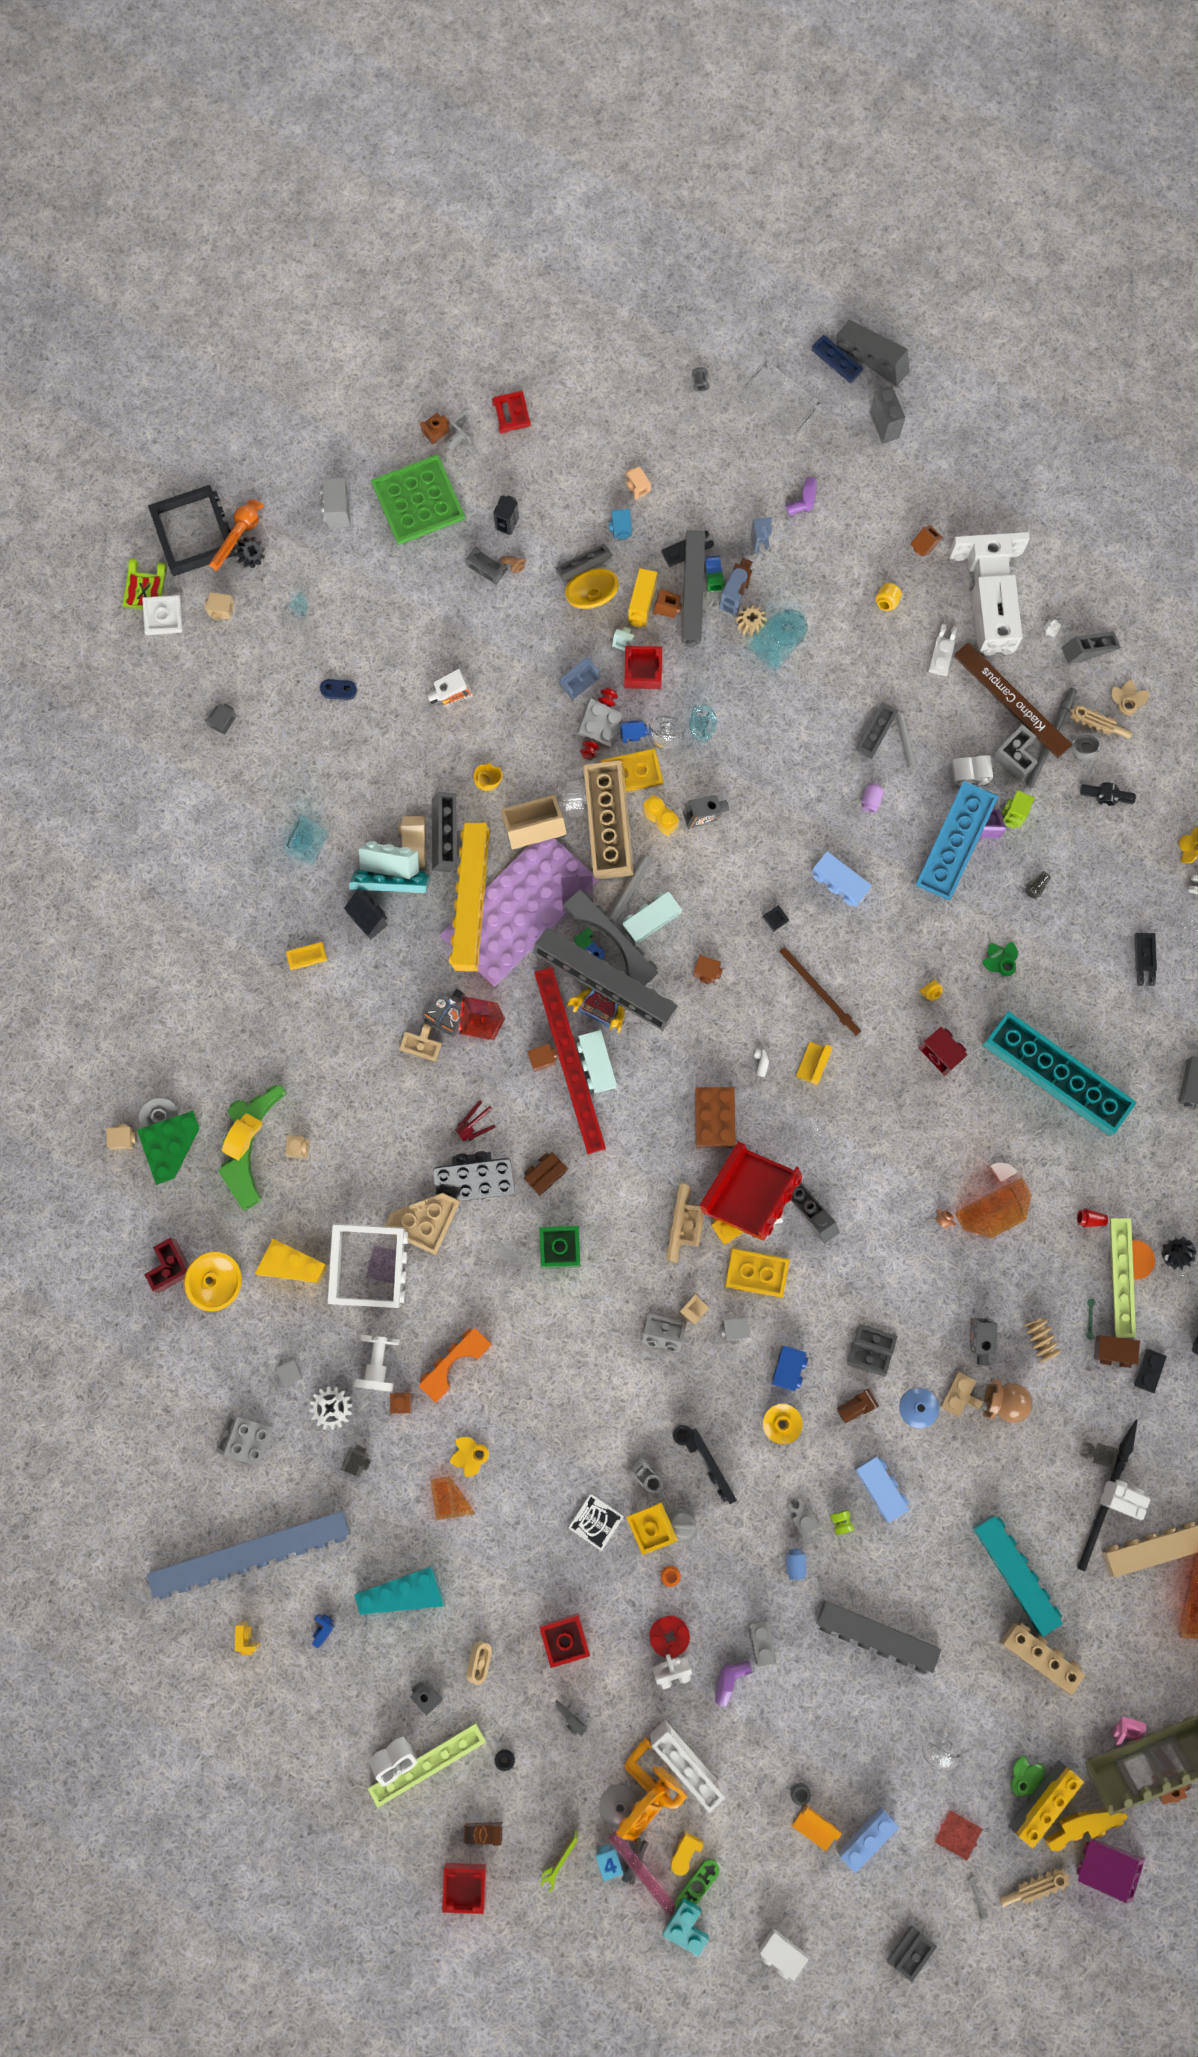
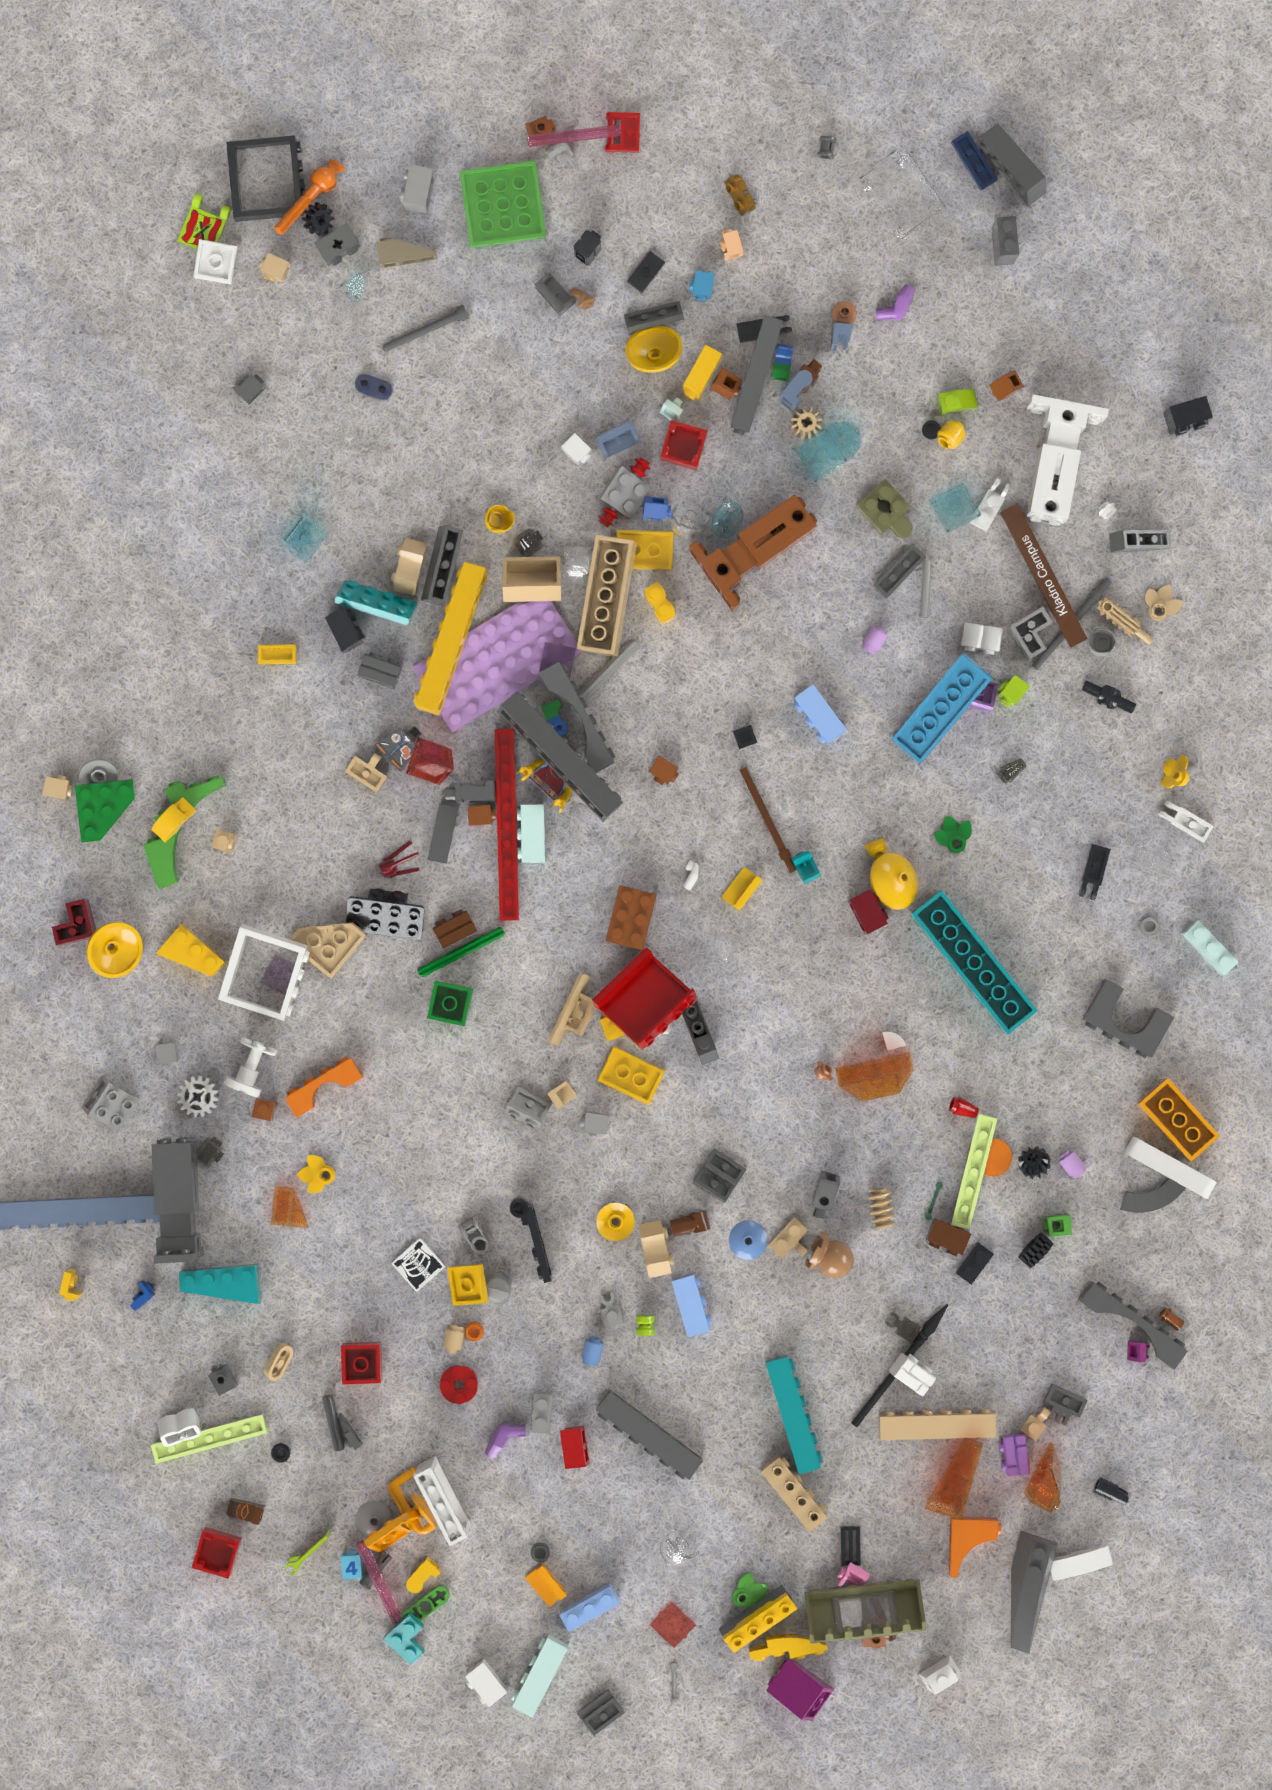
camera: 15 degrees right, 10 degrees up
(265, 575) = (345, 238): none -> dark grey brick
(333, 564) = (397, 252): none -> dark tan slope
(333, 1518) = (176, 1200): none -> dark grey brick
(388, 860) = (380, 581): light aqua brick -> none
(402, 605) = (459, 314): none -> dark grey piece
(409, 945) = (379, 671): none -> dark grey brick
(450, 689) = (492, 418): white torso -> none
(467, 421) = (574, 135): none -> clear pink axle
(509, 1085) = (443, 833): none -> dark grey tile
(521, 791) = (529, 542): none -> clear smoke head
(528, 1037) = (472, 793): none -> dark grey hips
(544, 696) = (577, 449): none -> white brick
(551, 1713) = (333, 1422): none -> dark grey axle
(557, 1195) = (460, 952): none -> green axle
(565, 526) = (646, 272): none -> black plate
(628, 435) = (735, 187): none -> pearl gold hinge
(651, 917) = (623, 704): light aqua brick -> none
(651, 1589) = (453, 1338): none -> tan brick
(672, 1670) = (452, 1415): white hips -> none
(704, 811) = (696, 611): dark grey torso -> none
(735, 741) = (755, 547): none -> dark orange brick
(757, 511) = (849, 311): none -> nougat head
(789, 1368) = (635, 1172): blue brick -> none
(805, 1671) = (574, 1447): none -> red hinge
(832, 1445) = (655, 1249): none -> tan brick
(837, 1930) = (539, 1676): none -> light aqua brick
(848, 677) = (886, 509): none -> olive brick
(867, 598) = (930, 429): none -> black plate
(870, 1025) = (806, 866): none -> teal bracket
(883, 567) = (956, 401): none -> lime slope
(911, 660) = (955, 507): none -> clear light blue plate
(959, 1015) = (894, 881): none -> yellow dish
(1038, 1887) = (720, 1688): tan piece -> none
(1101, 524) = (1188, 415): none -> black brick
(1128, 1714) = (850, 1539): none -> black tile

